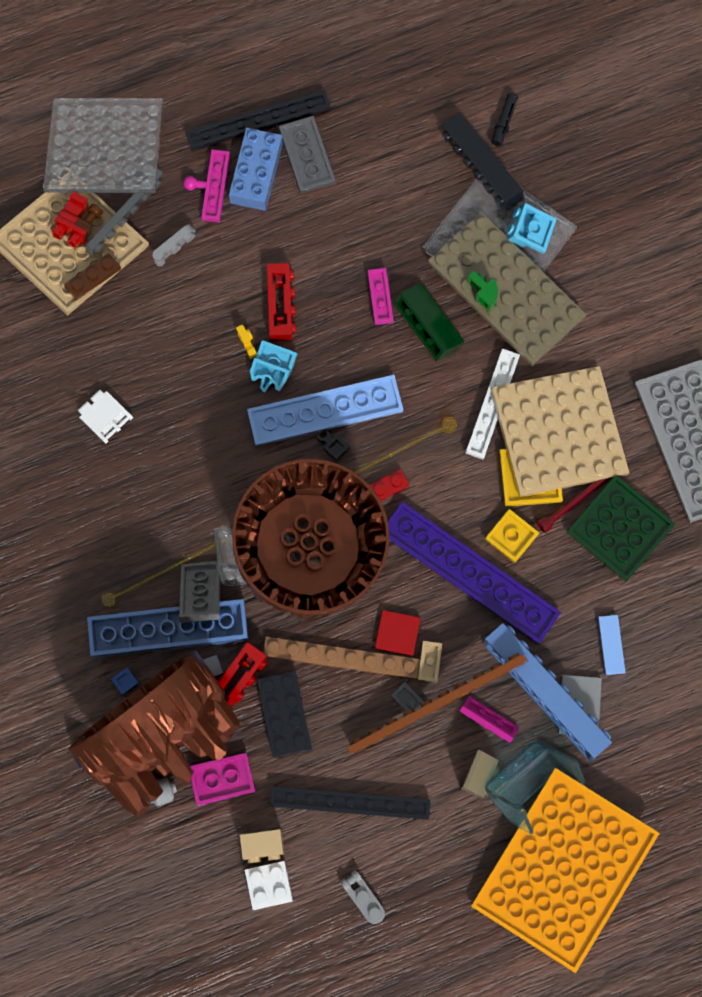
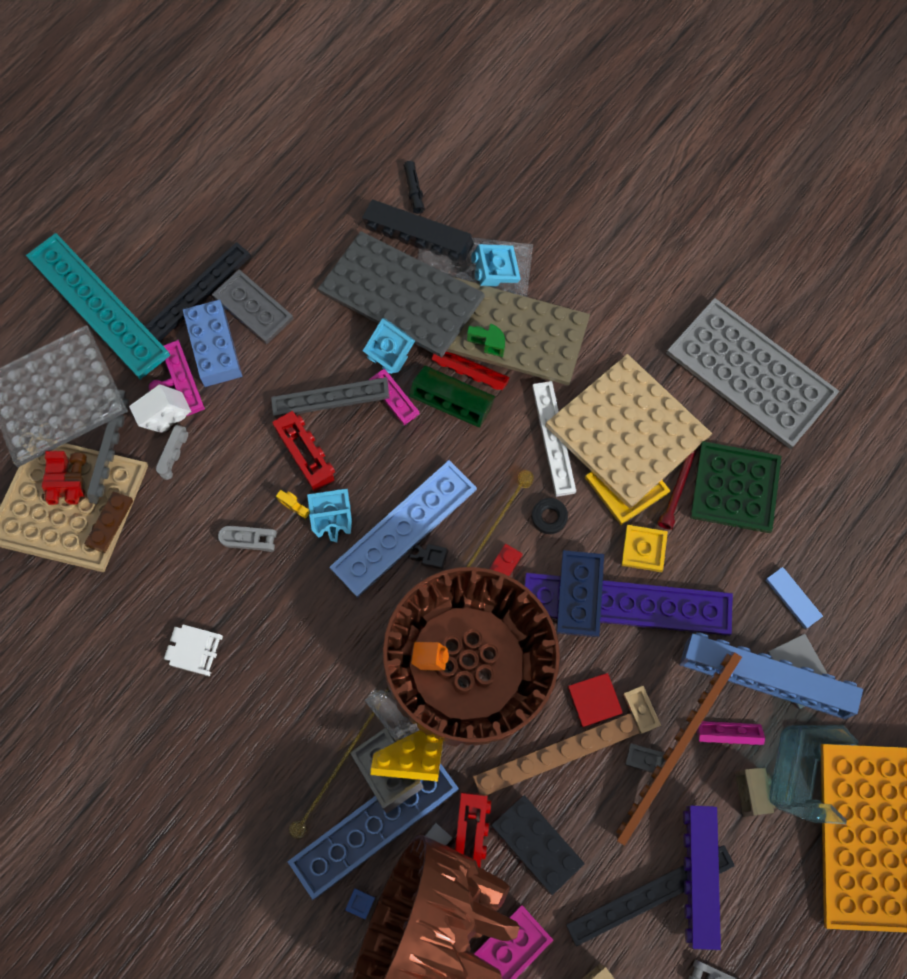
camera: 30 degrees left, 5 degrees down
(179, 86) = (98, 306): none -> teal plate
(182, 204) = (160, 409): none -> white brick
(195, 349) = (247, 538): none -> light grey plate
(223, 592) = (411, 758): none -> yellow plate
(279, 521) = (429, 656): none -> orange brick
(327, 269) = (331, 397): none -> dark grey plate
(397, 810) = (702, 877): none -> dark purple brick
(399, 251) = (389, 346): none -> medium azure plate
(435, 542) = (580, 594): none -> dark blue plate
(436, 210) = (402, 289): none -> dark grey plate
(450, 454) = (558, 507): none -> black tyre
(458, 307) = (476, 371): none -> red plate

